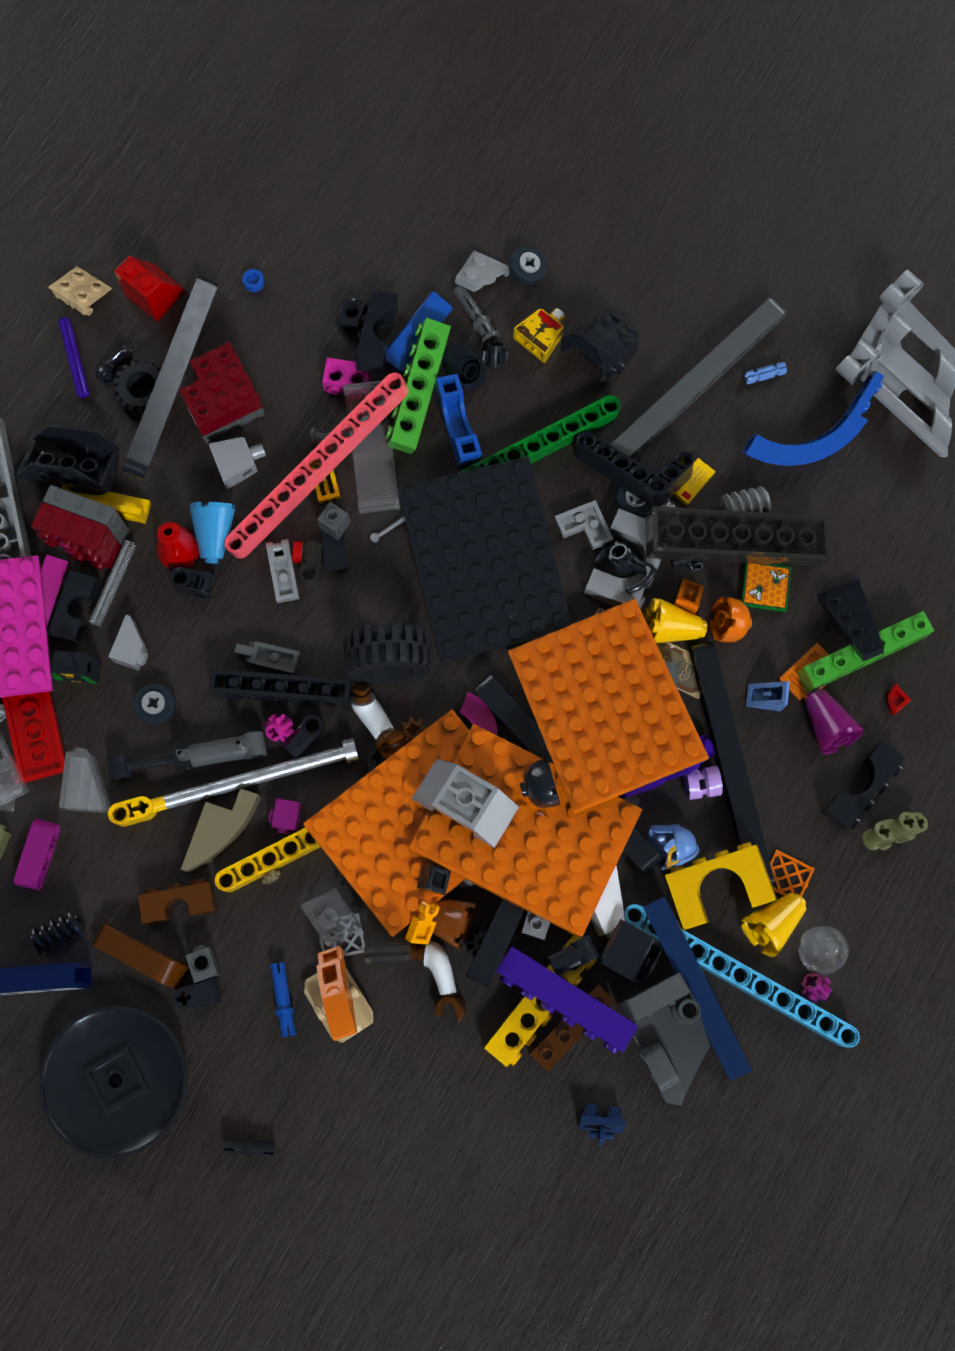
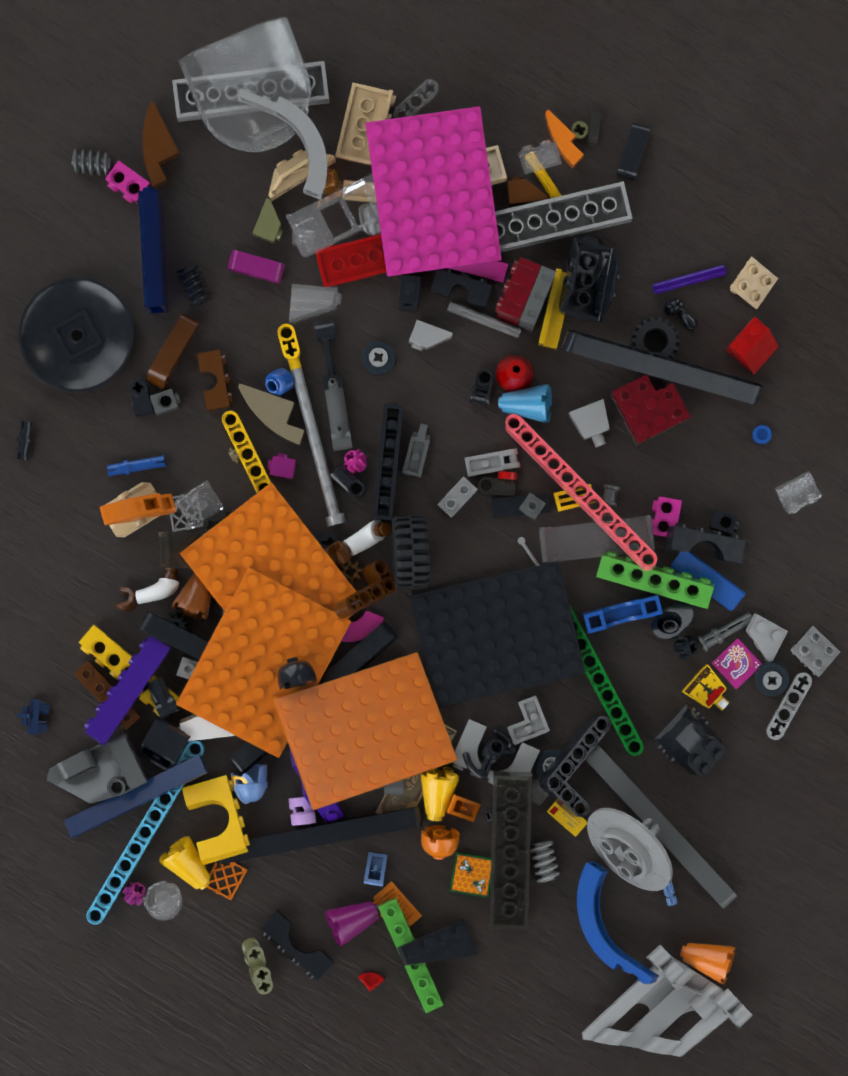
camera: 90 degrees right, 10 degrees up
(180, 821) = (279, 381): none -> blue head
(319, 239) = (798, 493): none -> clear bracket
(323, 608) = (457, 497): none -> light grey brick
(423, 926) = (187, 577): light orange plate -> none
(432, 695) = (380, 584): none -> reddish brown beam
(433, 879) = (223, 586): black slope -> none
(466, 800) = (284, 613): light grey slope -> none
(497, 223) = (815, 651): none -> light grey hinge
(511, 305) = (736, 663): none -> dark pink sticker
(559, 246) = (791, 707): none -> light grey beam
(730, 398) = (630, 848): none -> light grey piece
(845, 322) = (709, 959): none -> orange cone

